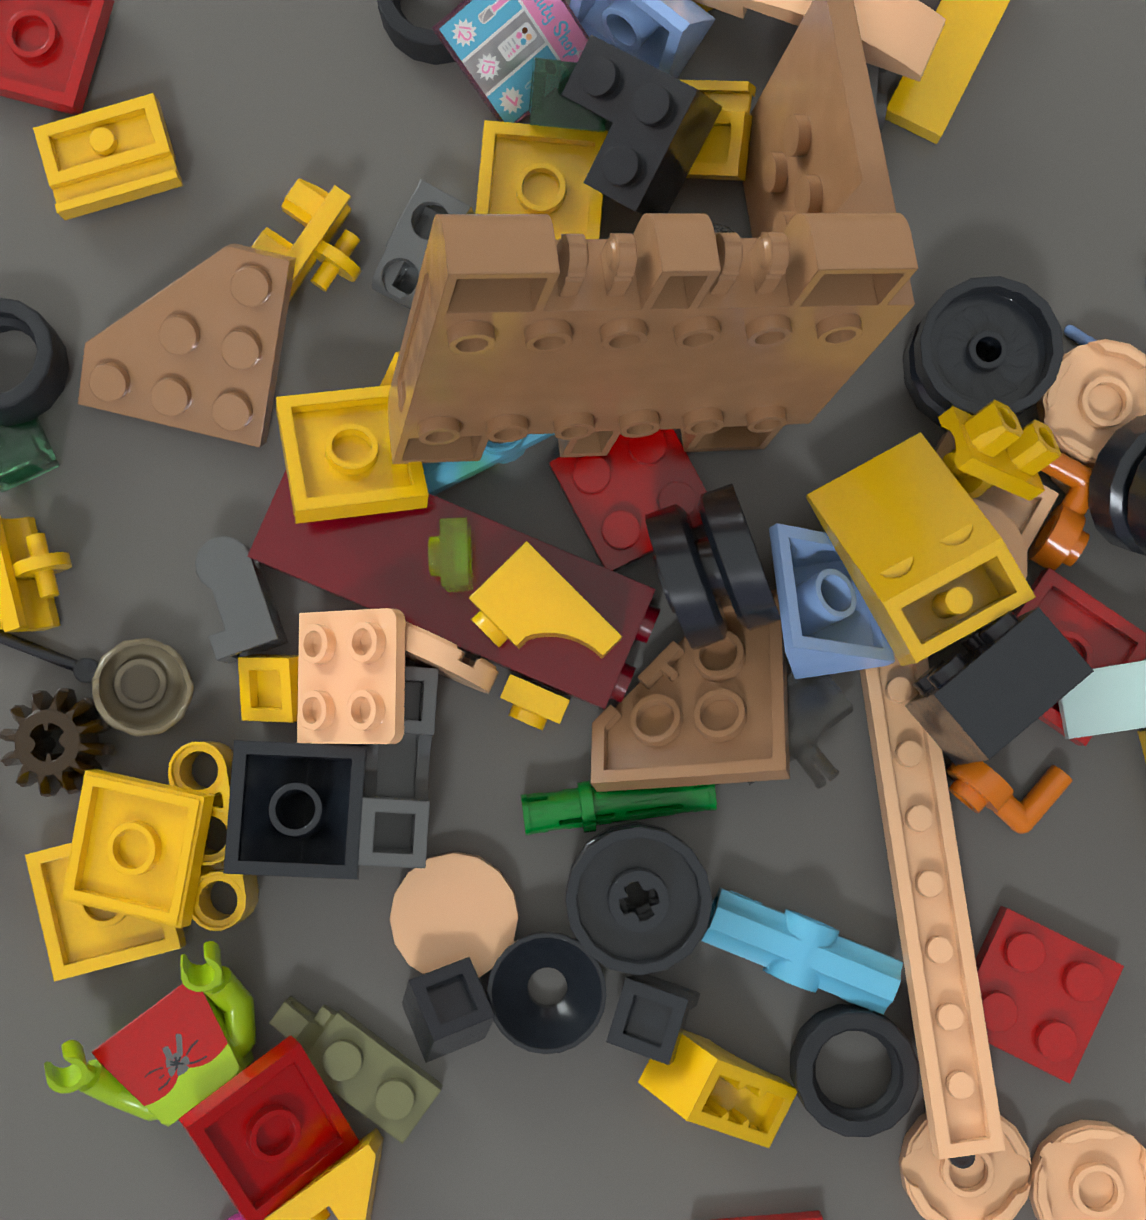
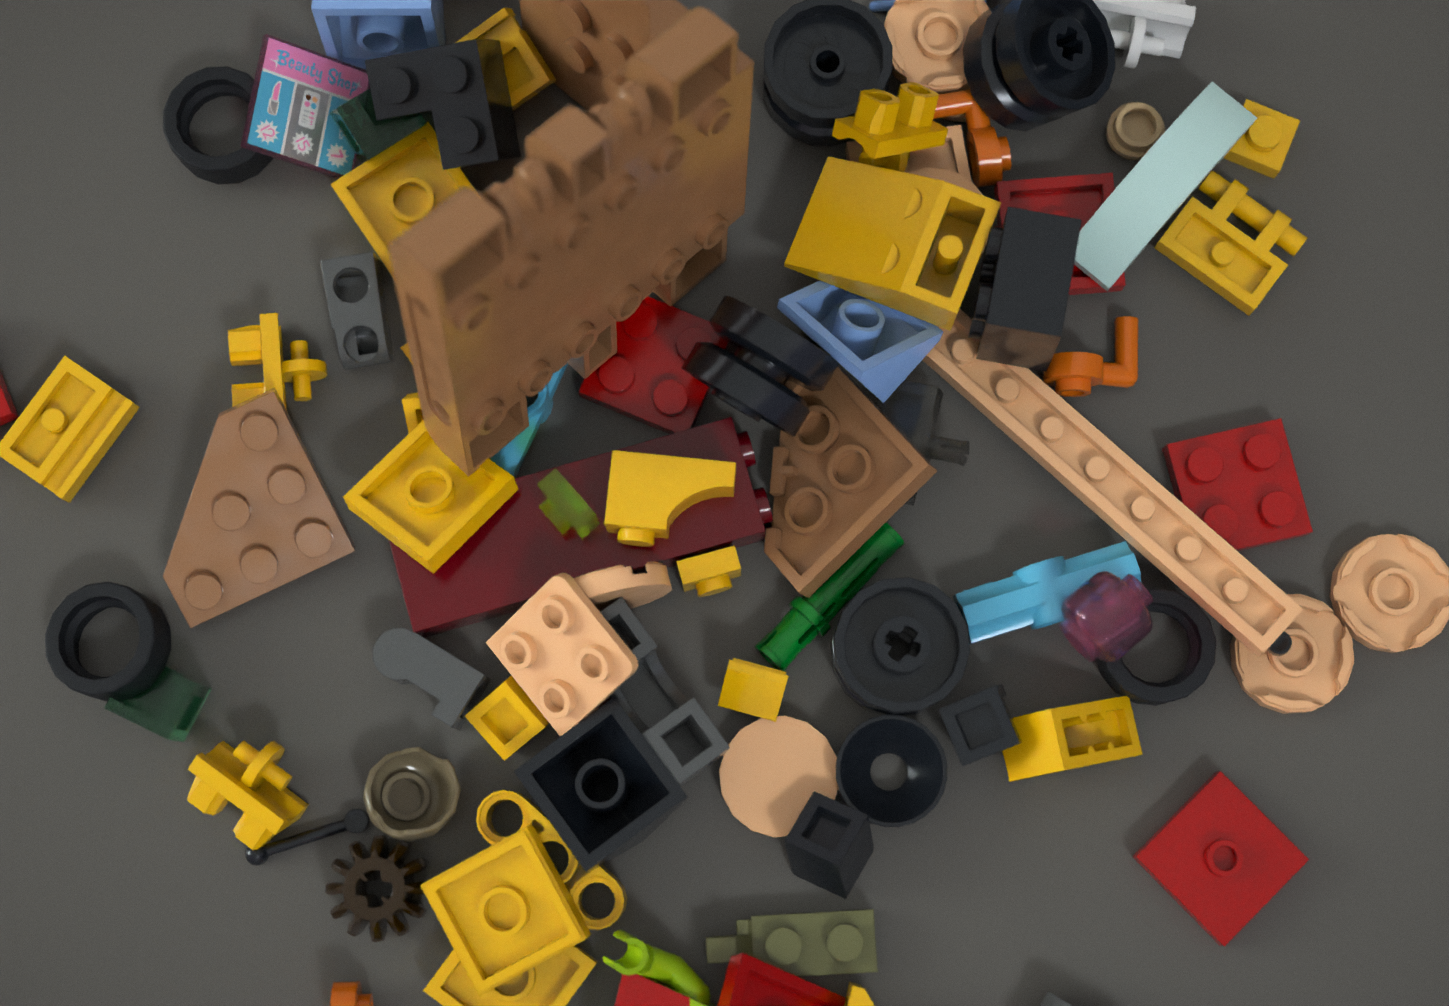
camera: 40 degrees left, 5 degrees down
(490, 830) = (753, 689): none -> yellow slope
(831, 1019) = (1107, 616): none -> clear pink head

